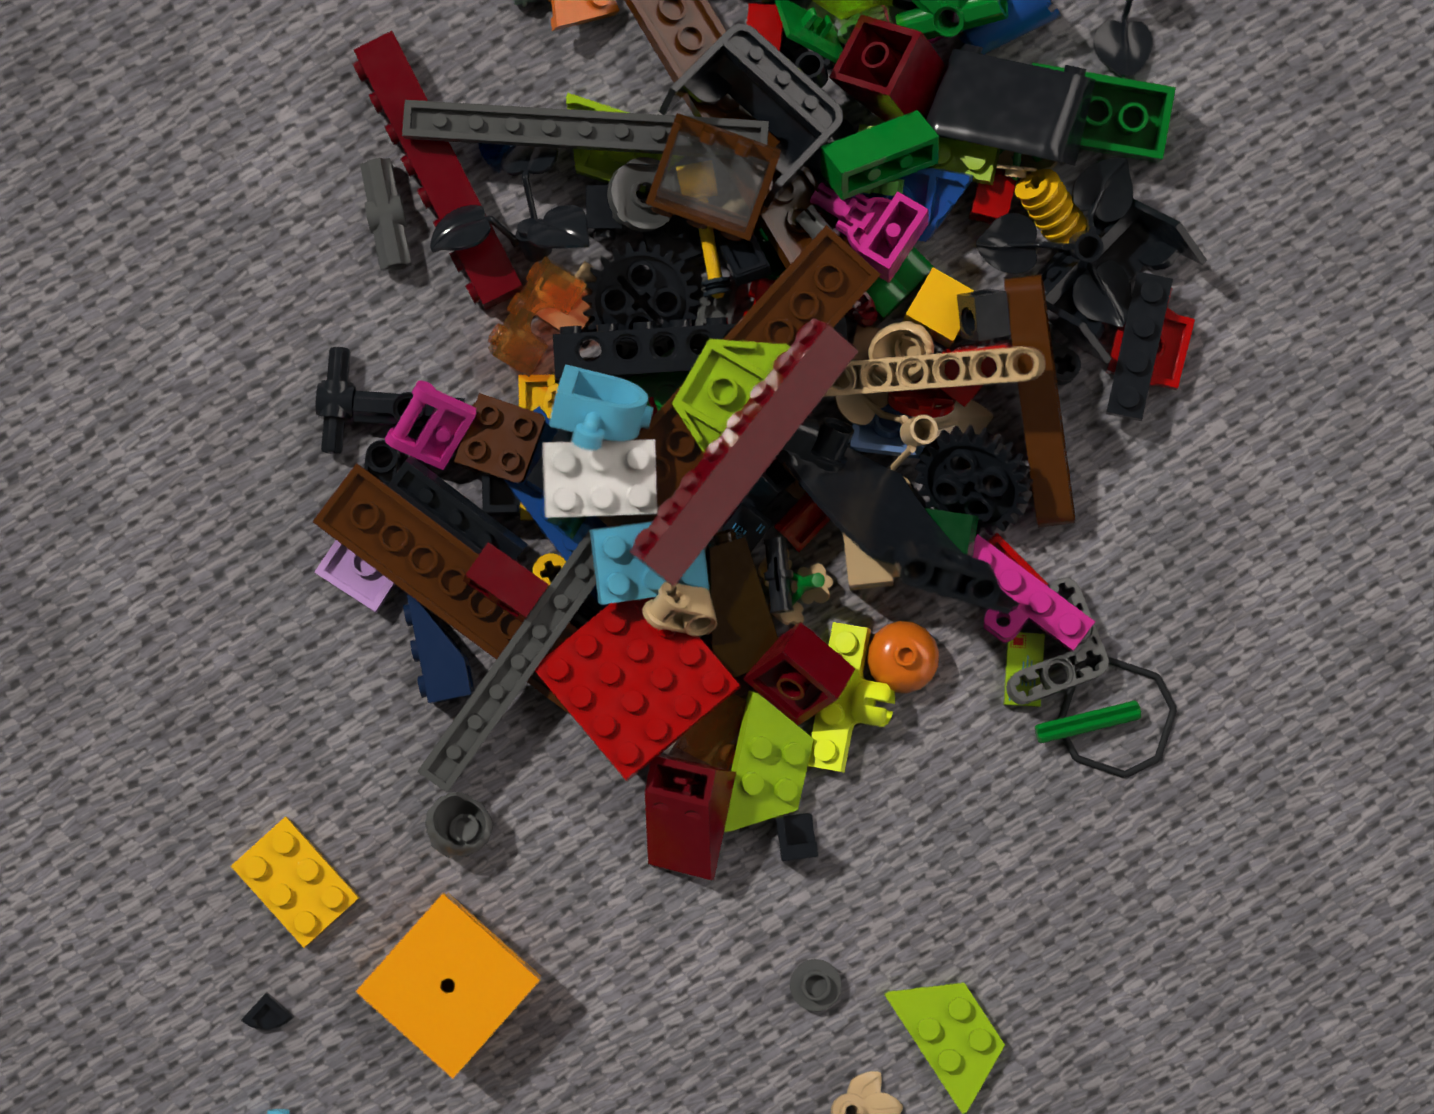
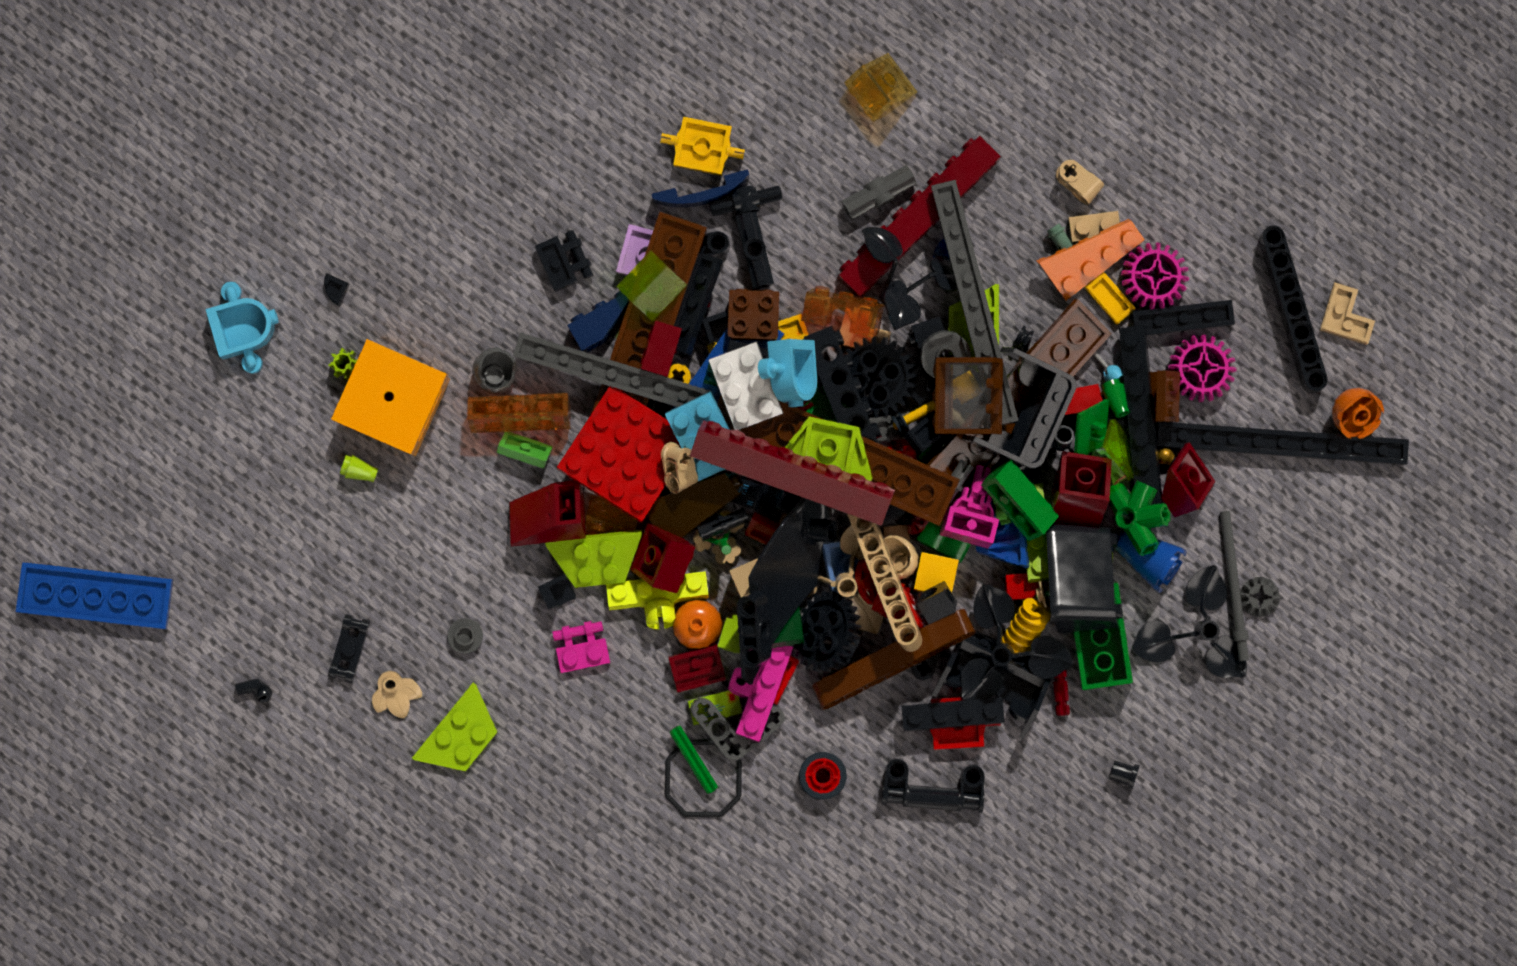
camera: 75 degrees right, 0 degrees up
(239, 165) = (880, 87): none -> clear yellow slope
(239, 435) = (702, 146): none -> yellow plate
(295, 882) = (425, 278): yellow plate -> none
(298, 502) = (671, 199): none -> dark blue slope
(339, 690) = (556, 263): none -> black plate
(370, 1040) = (339, 360): none -> lime gear
(412, 566) = (651, 285): none -> clear neon green slope
(440, 433) = (745, 275): dark pink plate -> none
(529, 810) = (519, 413): none -> clear orange brick
(533, 1063) = (357, 469): none -> lime cone
(582, 819) = (524, 449): none -> bright green plate
(652, 84) = (1023, 338): none -> black bush
(894, 828) = (584, 654): none -> dark pink plate
(936, 612) = (729, 637): none -> lime brick
(963, 676) = (697, 668): none -> dark red plate
(1158, 194) = (1061, 694): none -> dark red axle
(1183, 541) = (833, 785): none -> wheel
(1255, 362) = (933, 797): none -> black piece
(1290, 142) = (1124, 773): none -> black bush

